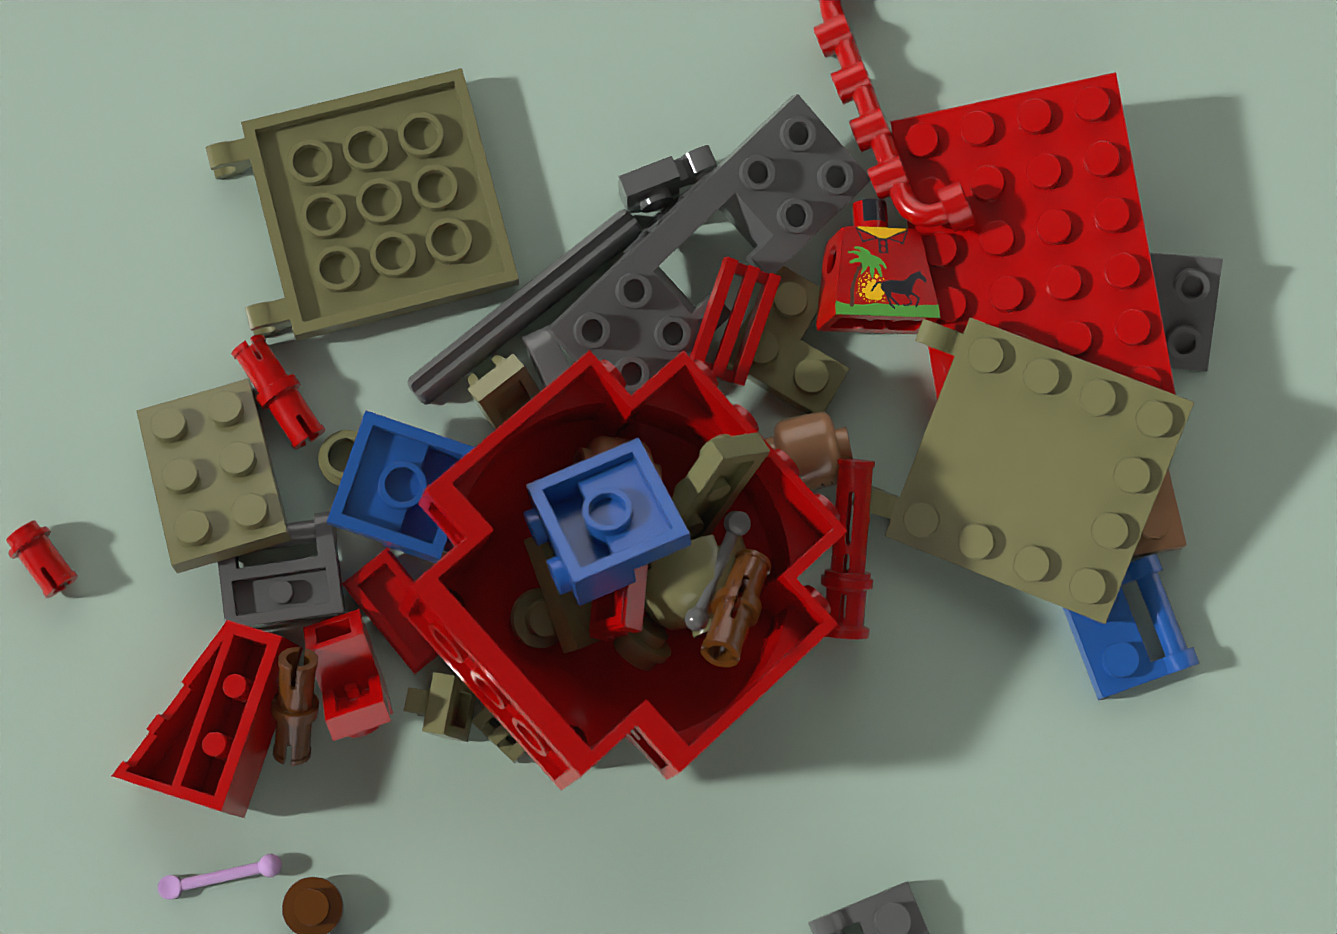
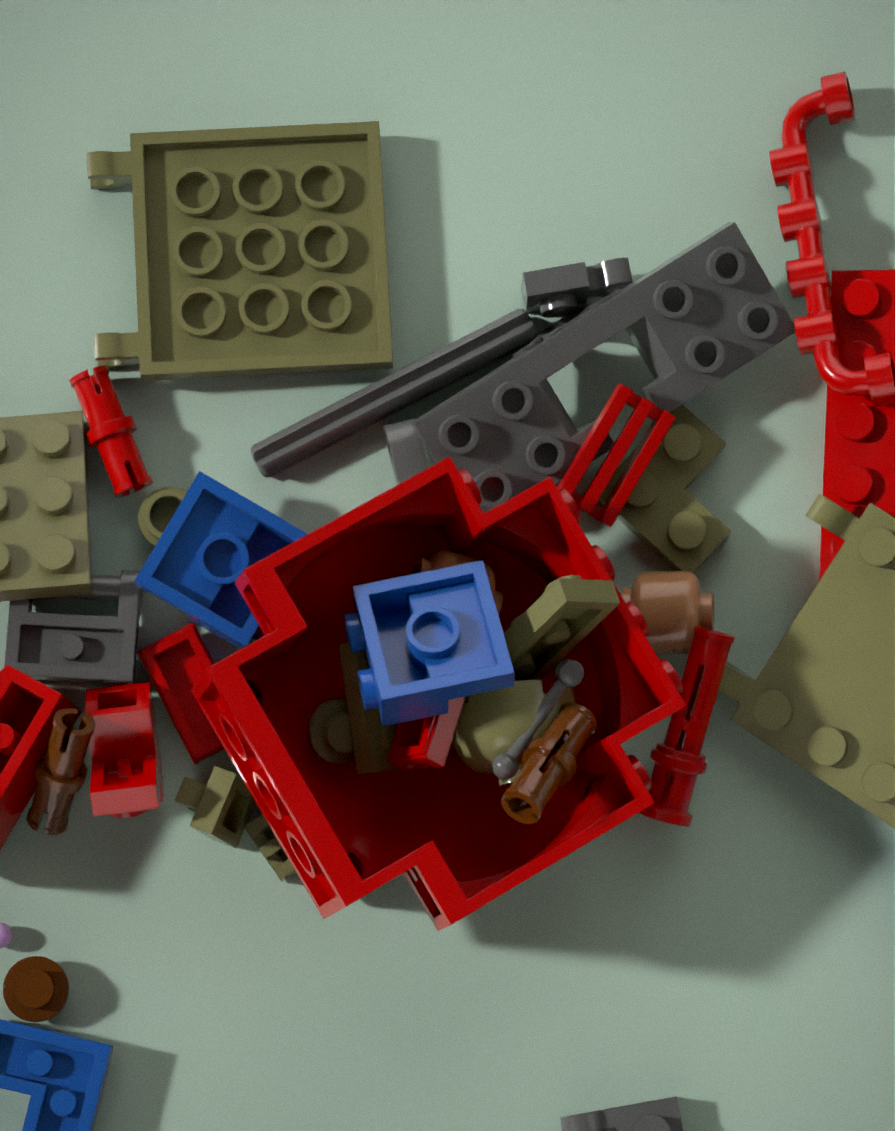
camera: 15 degrees right, 0 degrees up
(502, 389) = (351, 478): olive tile -> none
(645, 647) = (445, 785): olive plate -> none
(875, 277) = (779, 437): red torso -> none

